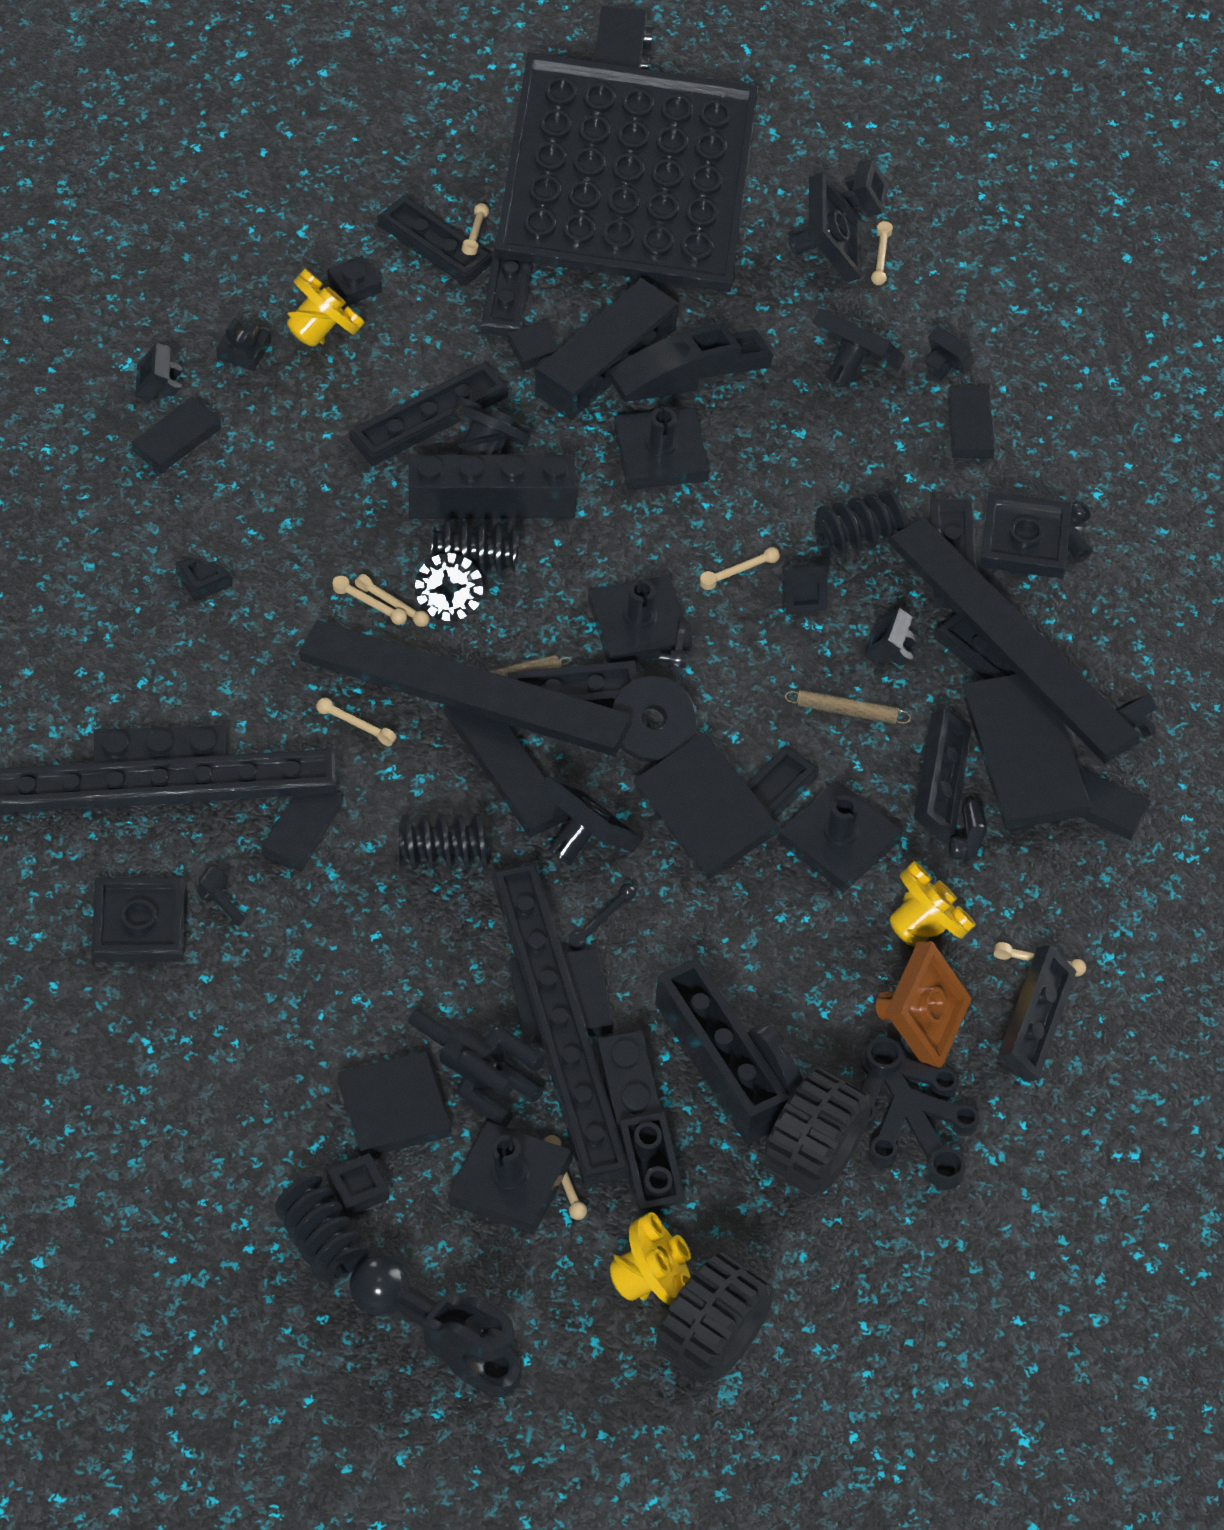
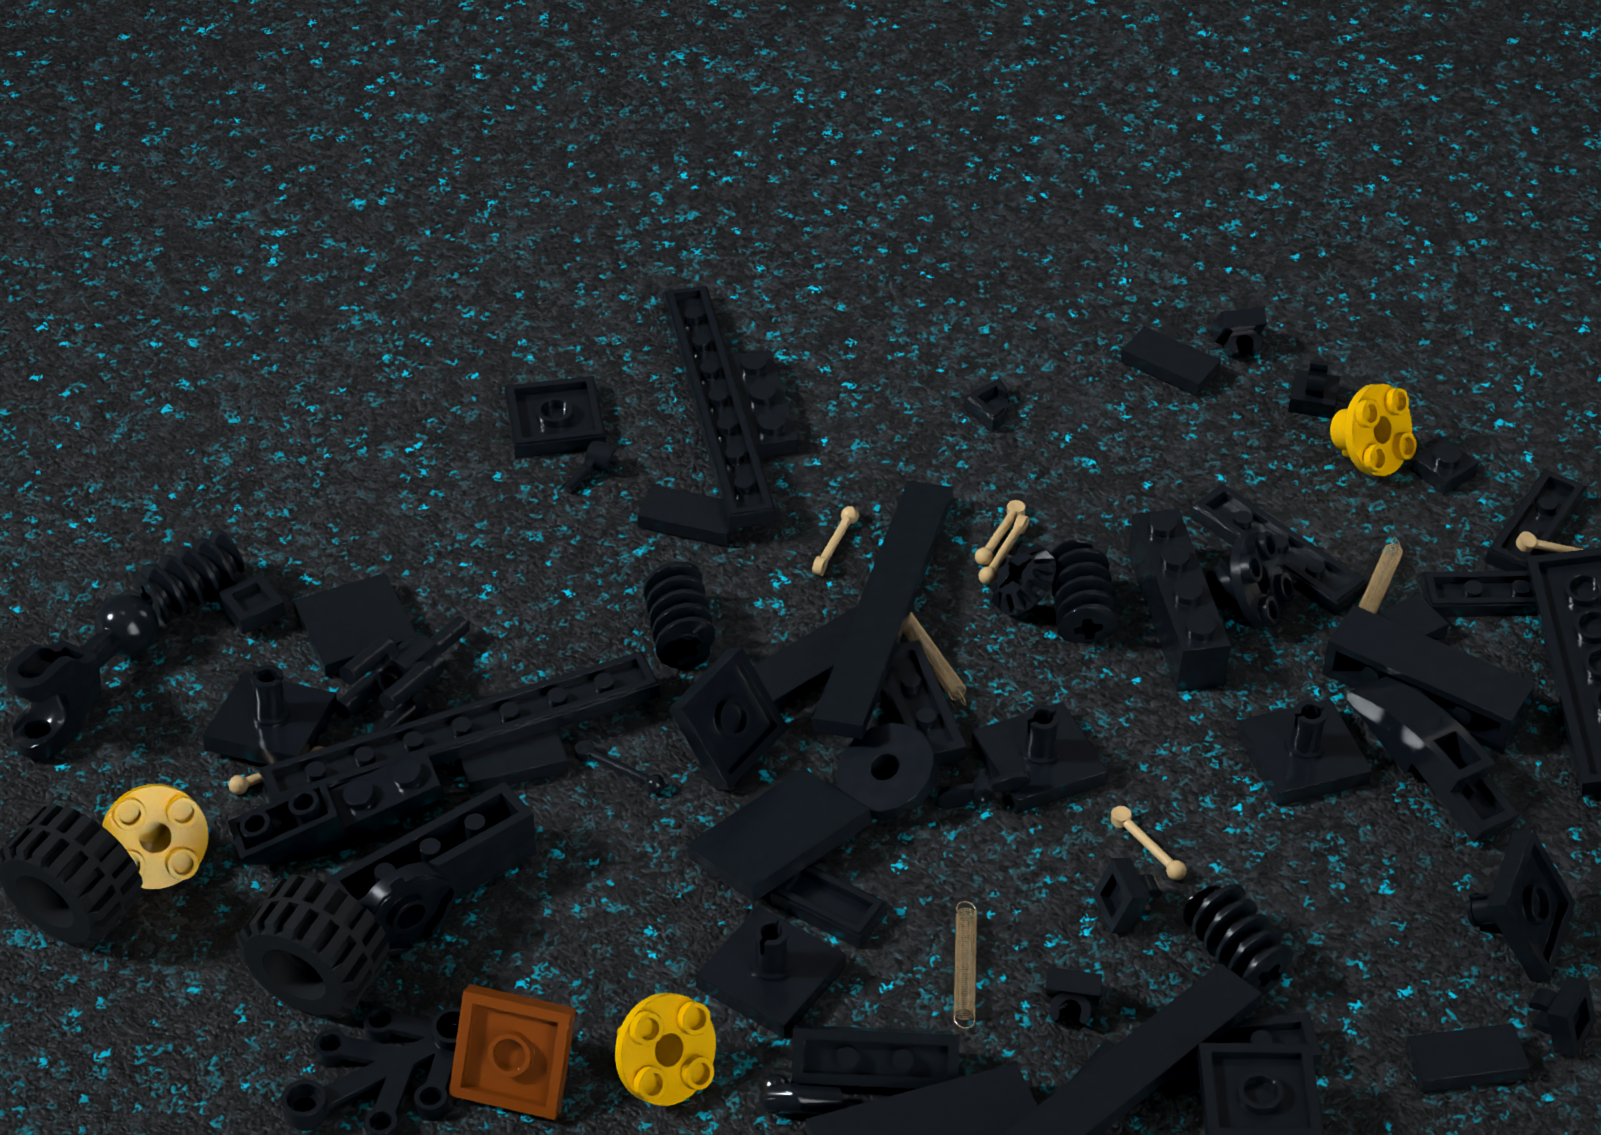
camera: 85 degrees right, 10 degrees down
(505, 363) = (1371, 583): none -> tan piece

